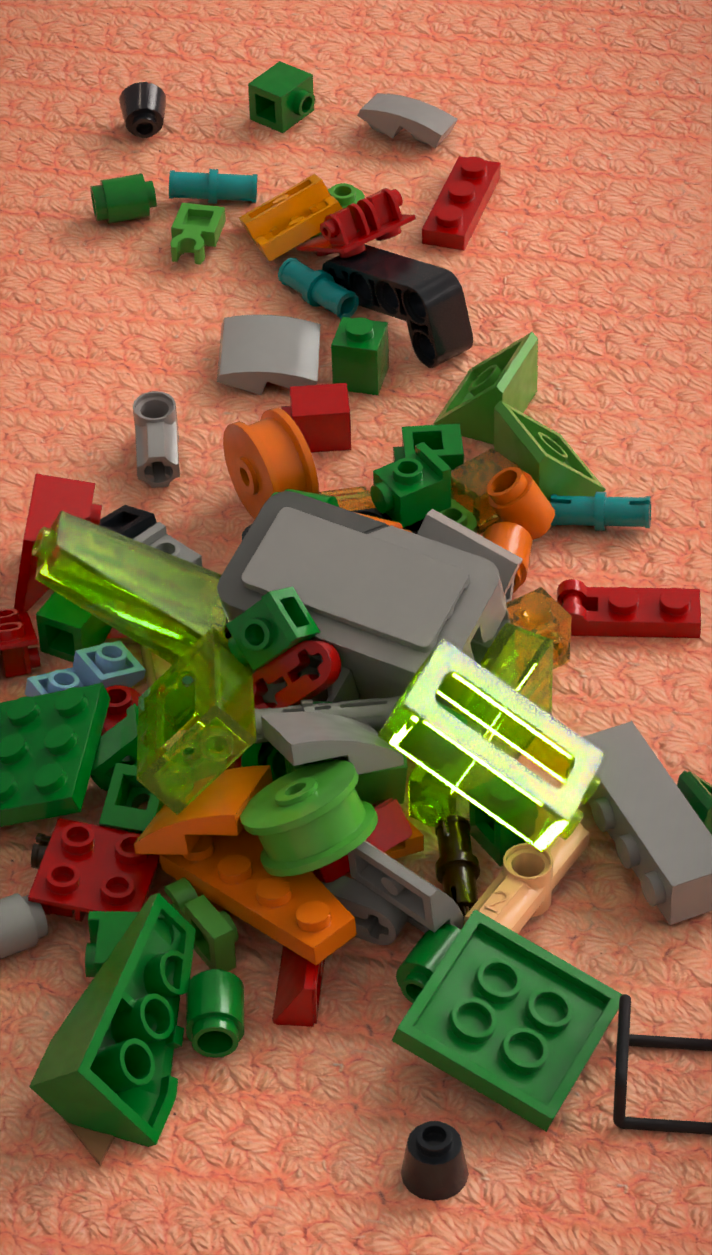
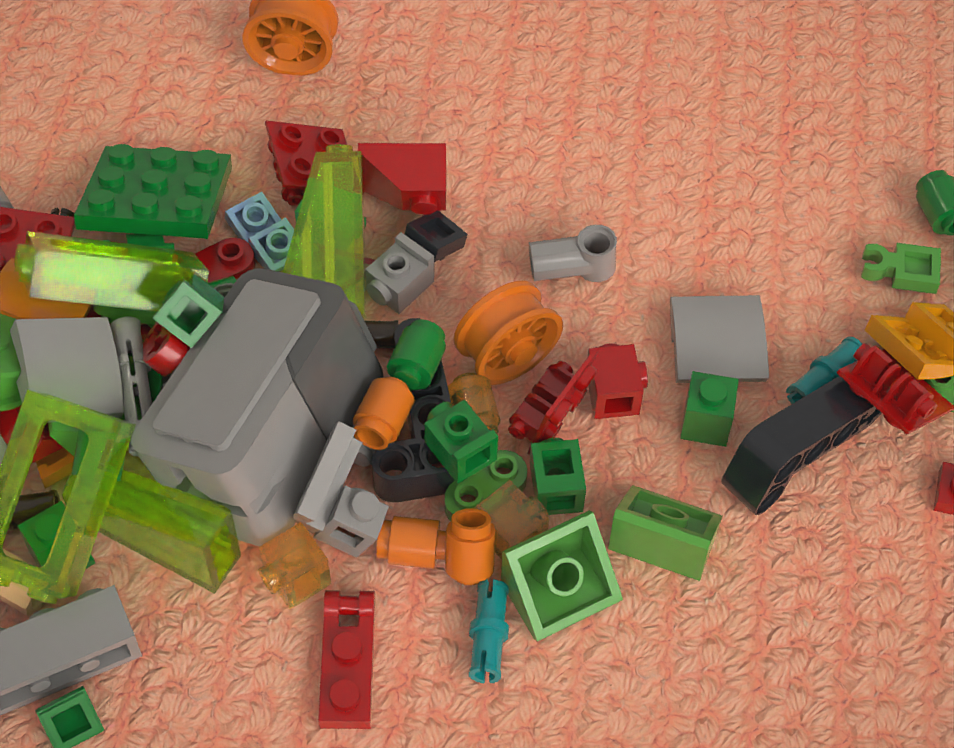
camera: 85 degrees right, 15 degrees up
(353, 433) = (551, 400): none -> red hinge

